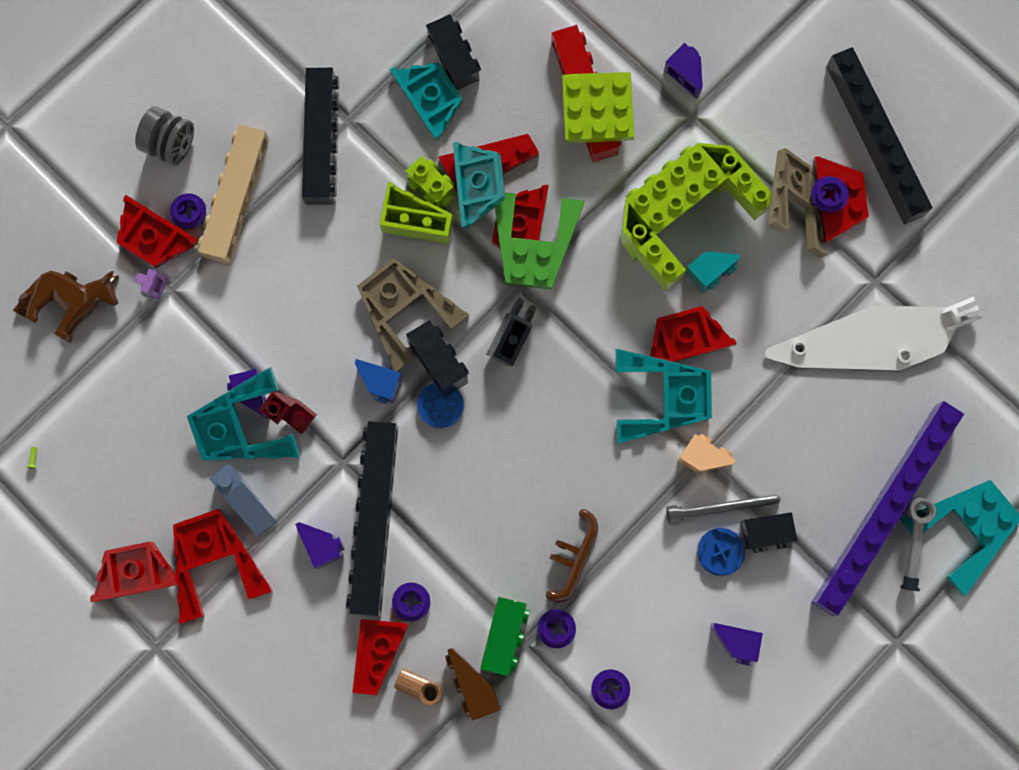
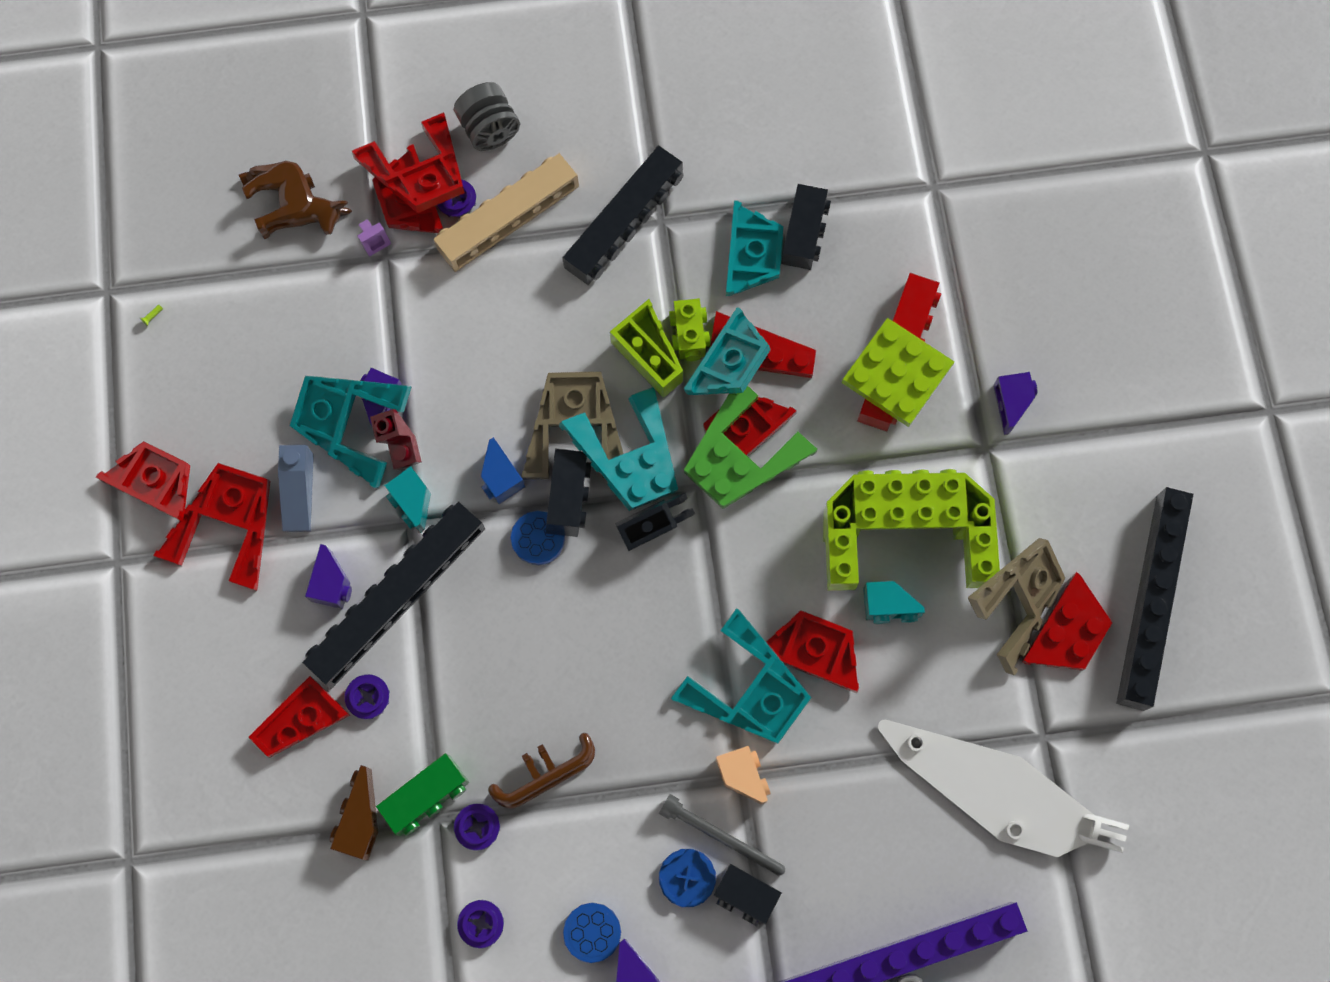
camera: 35 degrees right, 5 degrees down
(158, 217) = (425, 182): none -> red wing
(329, 442) = (412, 496): none -> teal slope
(417, 685) = (309, 778): medium nougat piece -> none
(475, 310) = (636, 475): none -> teal wing
(687, 636) = (592, 932): none -> blue tile
(830, 184) = (1069, 609): dark purple gear -> none

